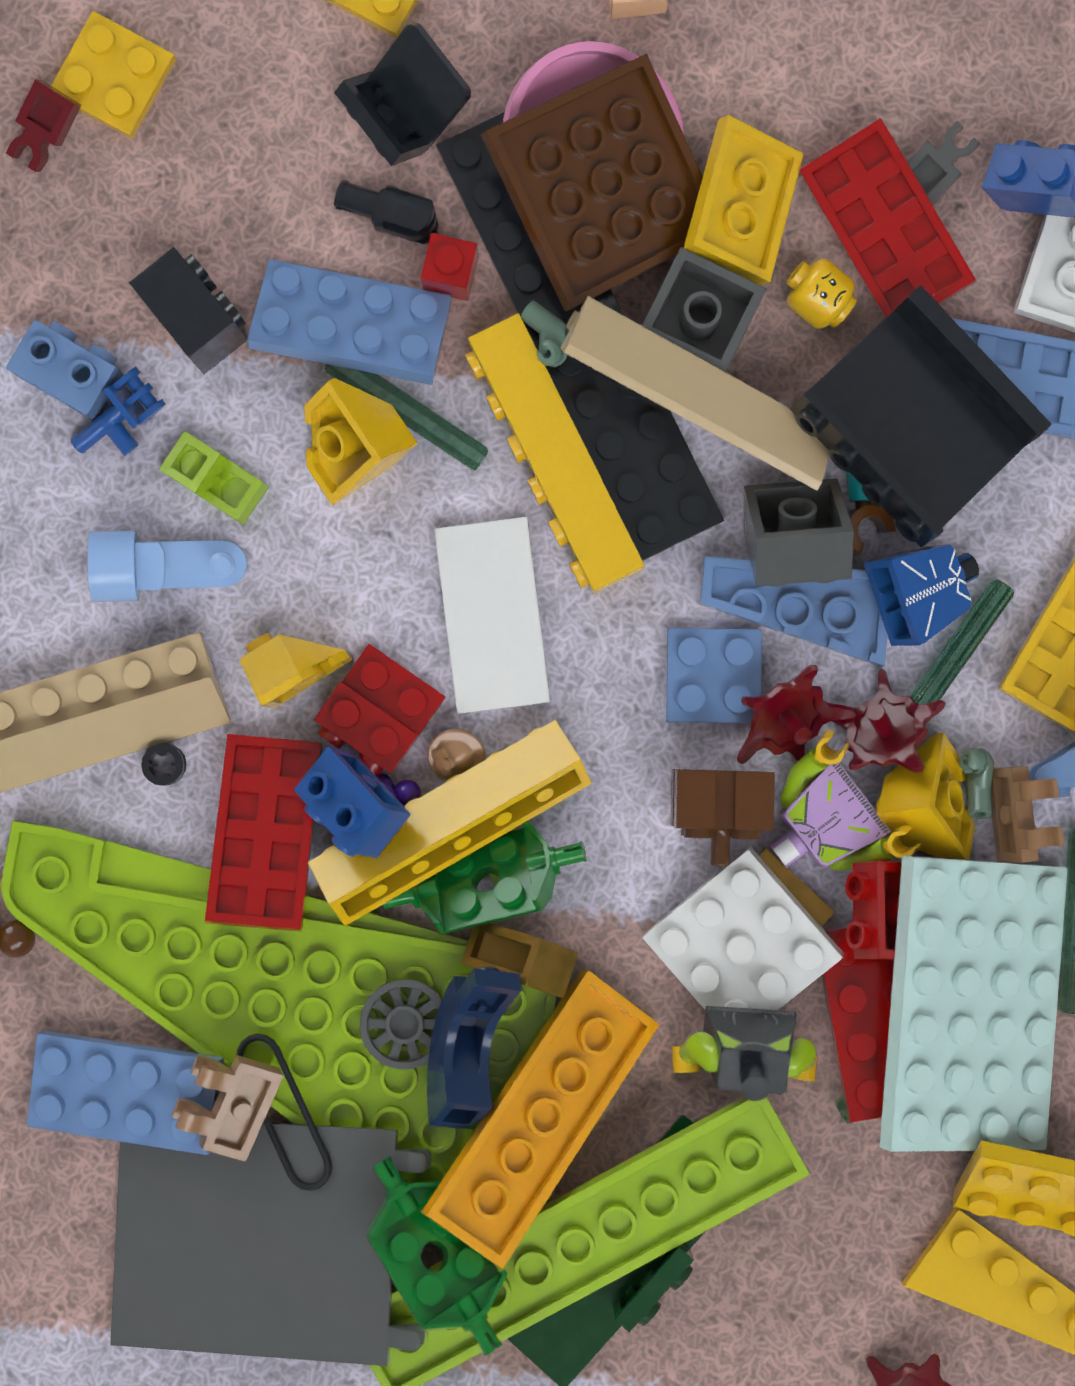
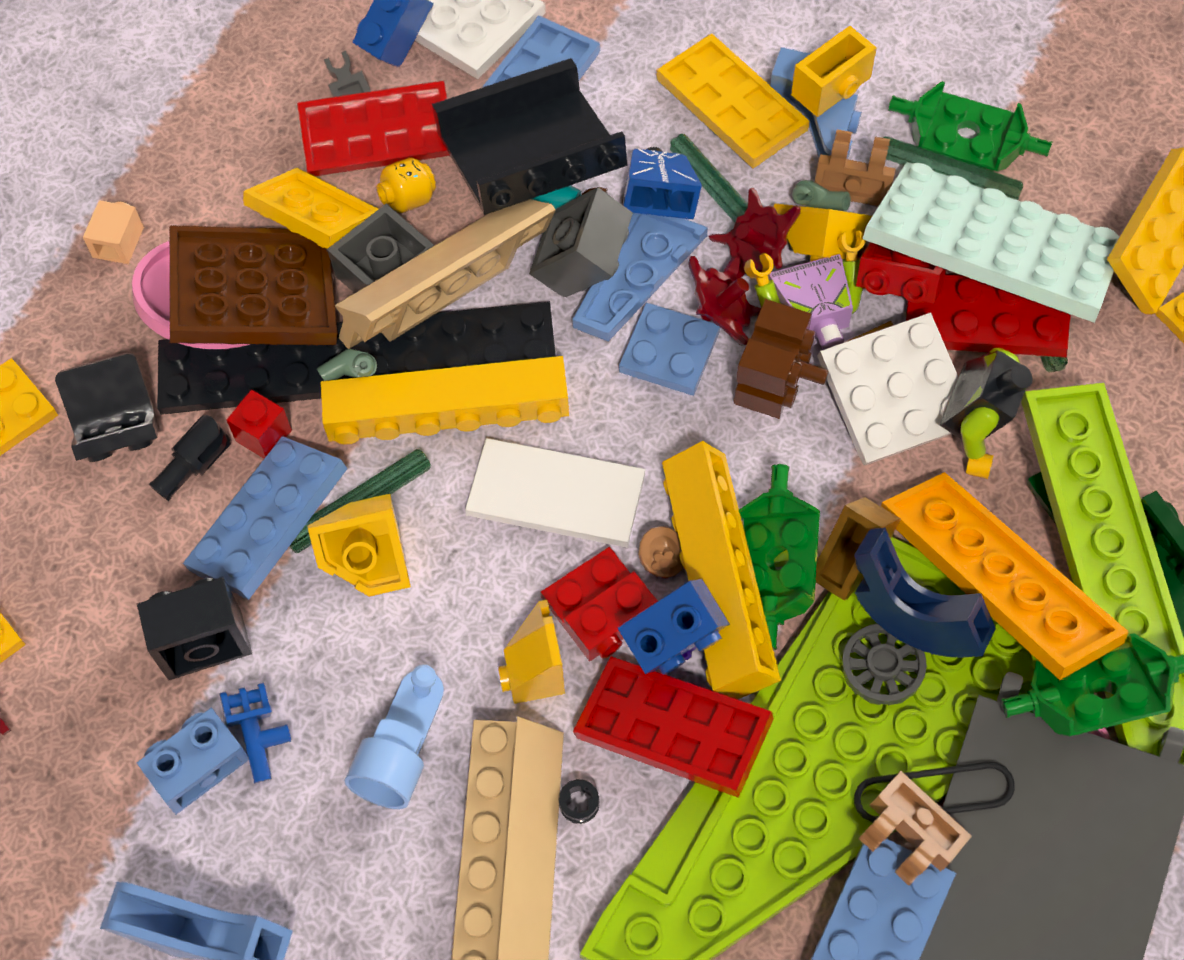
camera: 70 degrees left, 25 degrees down
(213, 477) = (340, 676): lime slope -> none

